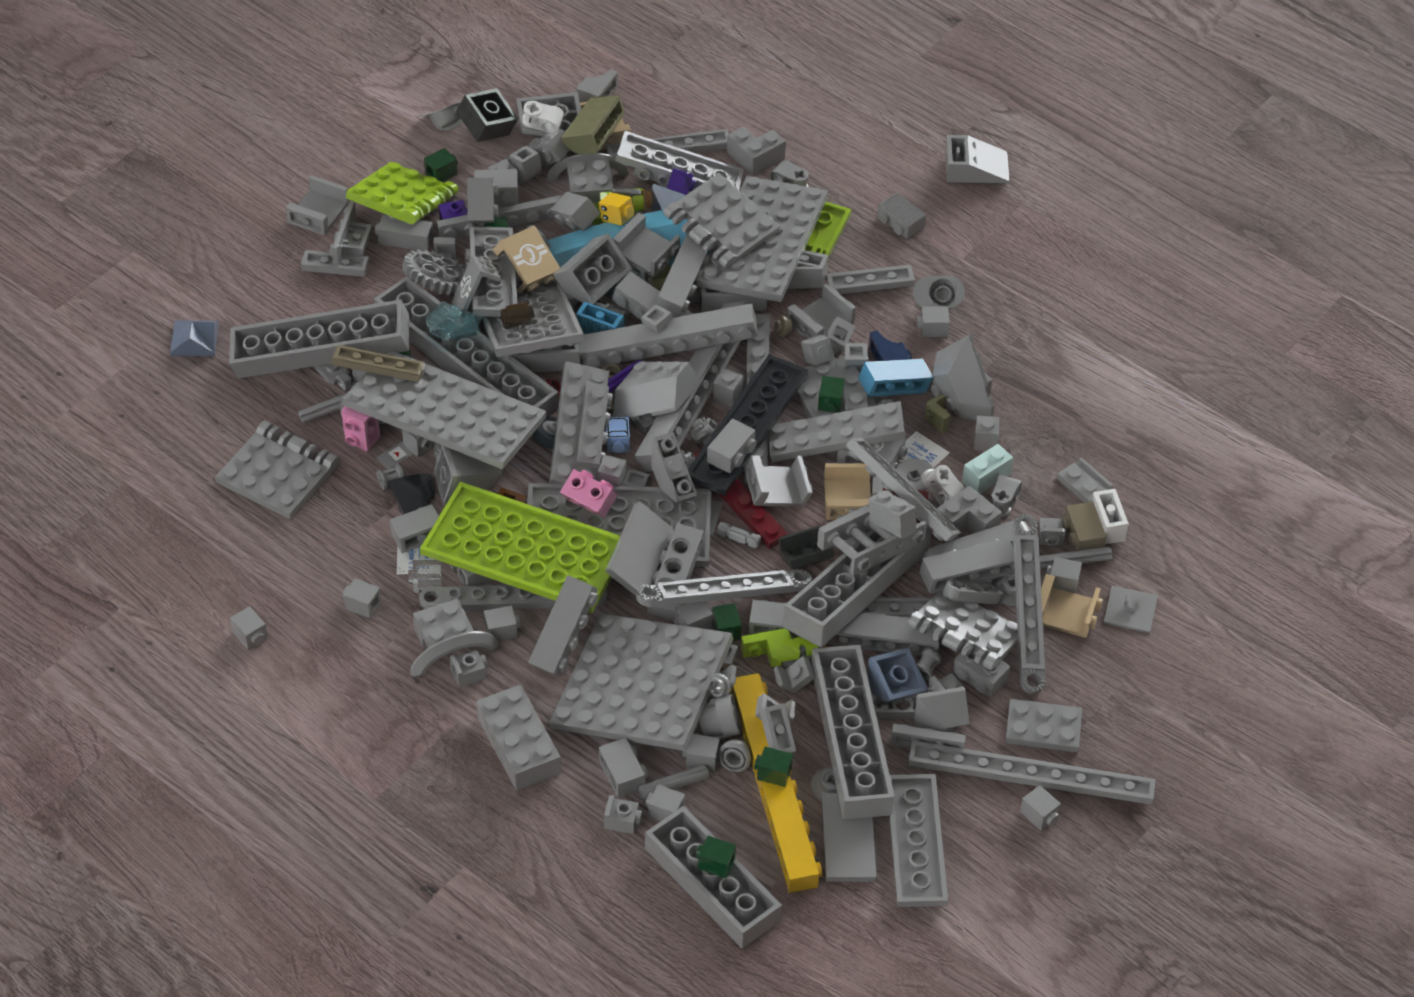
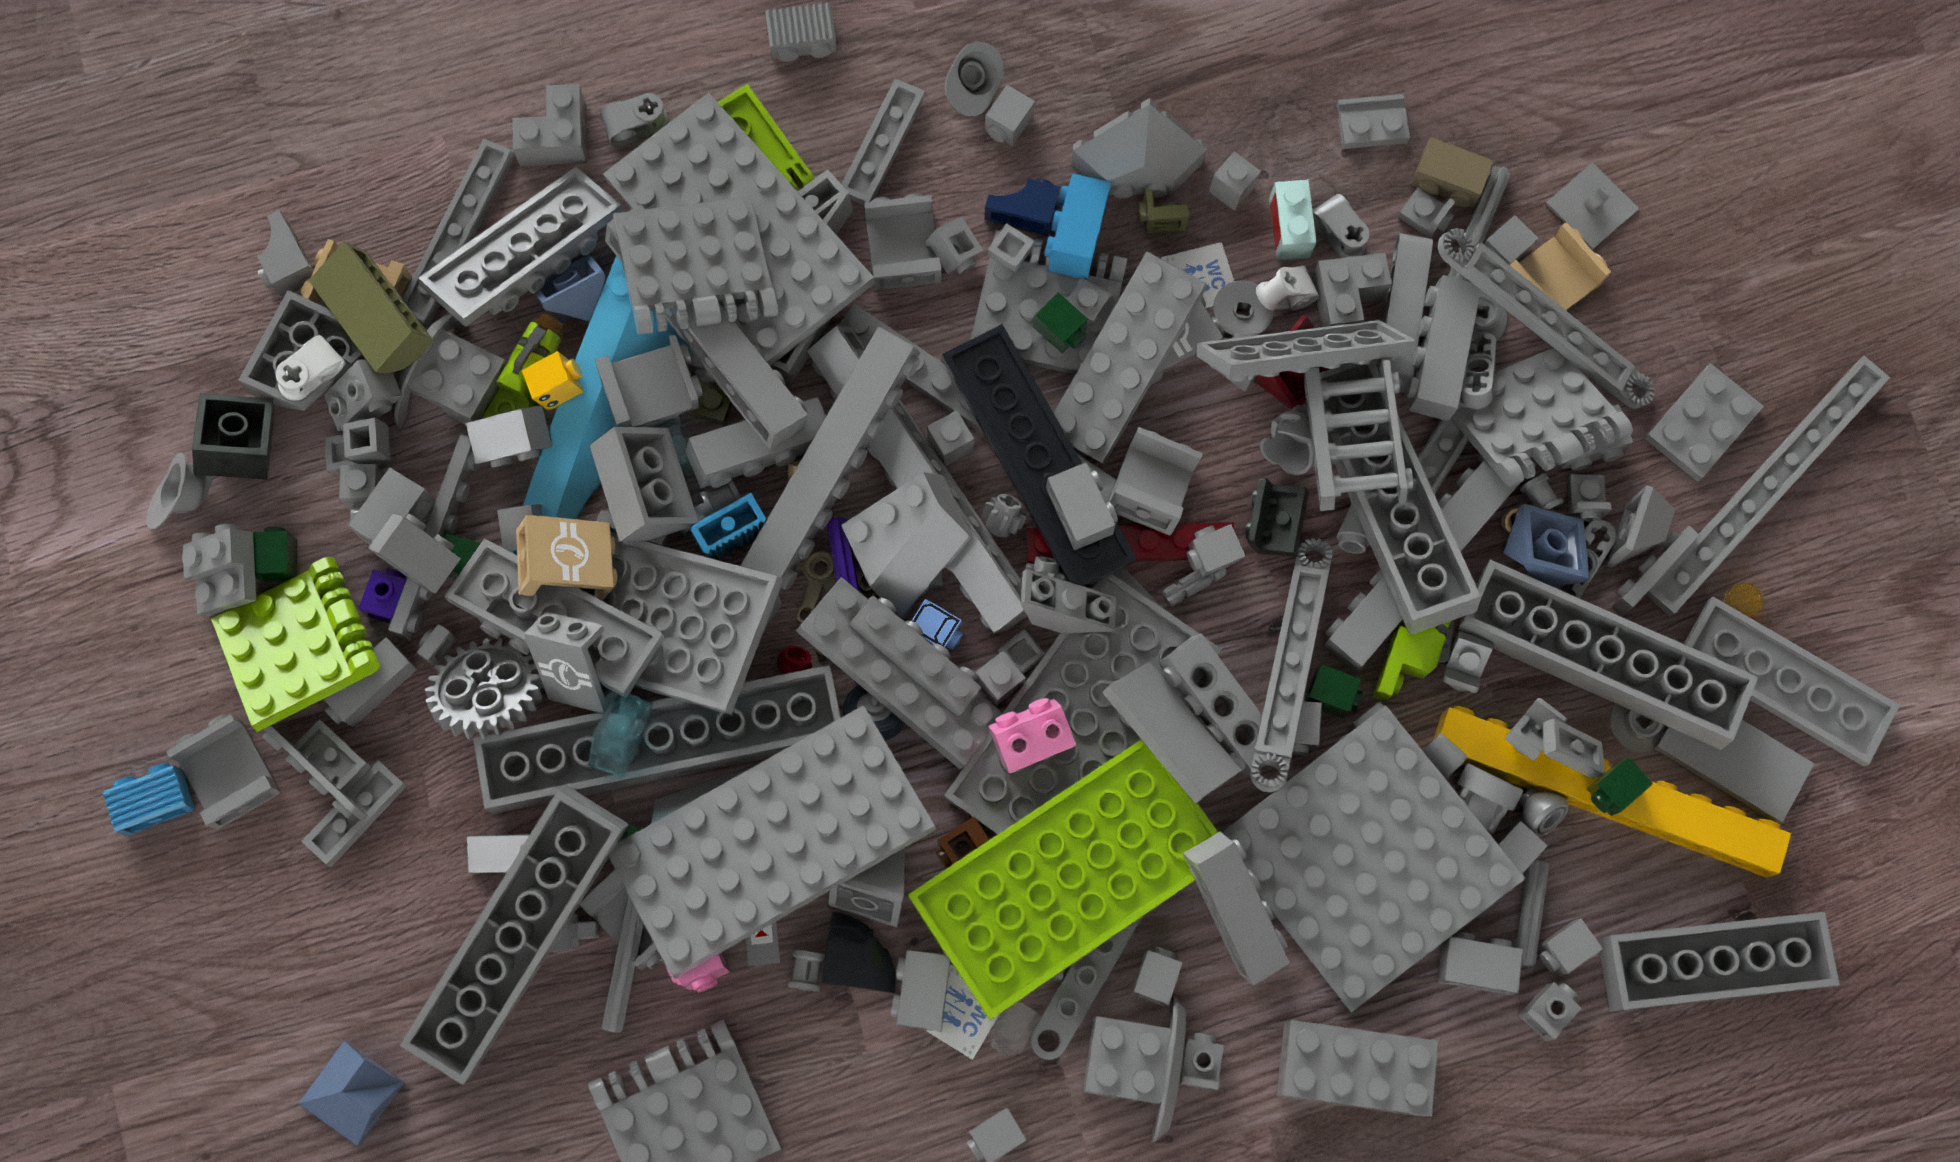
camera: 60 degrees left, 25 degrees up
(282, 185) = (149, 799): none -> dark azure brick
(378, 363) = (638, 887): dark tan tile -> none
(417, 146) = (222, 569): none -> light grey plate
(517, 314) = (675, 640): dark brown brick -> none
(656, 318) = (806, 460): light grey plate -> none
(681, 181) = (563, 266): dark purple brick -> none
(716, 856) = (1726, 950): dark green brick -> none
(719, 685) = (1461, 775): light grey plate -> none
(760, 523) = (1214, 550): none -> light grey brick
(783, 325) = (887, 300): dark tan plate -> none
(817, 350) = (965, 287): light grey brick -> none
(845, 488) = (1214, 408): tan panel -> none
(892, 514) = (1365, 394): light grey brick -> none
(949, 797) = (1745, 598): none -> clear yellow tile
(1040, 808) = (1828, 509): light grey brick -> none
(1111, 515) = (1461, 129): white brick -> none

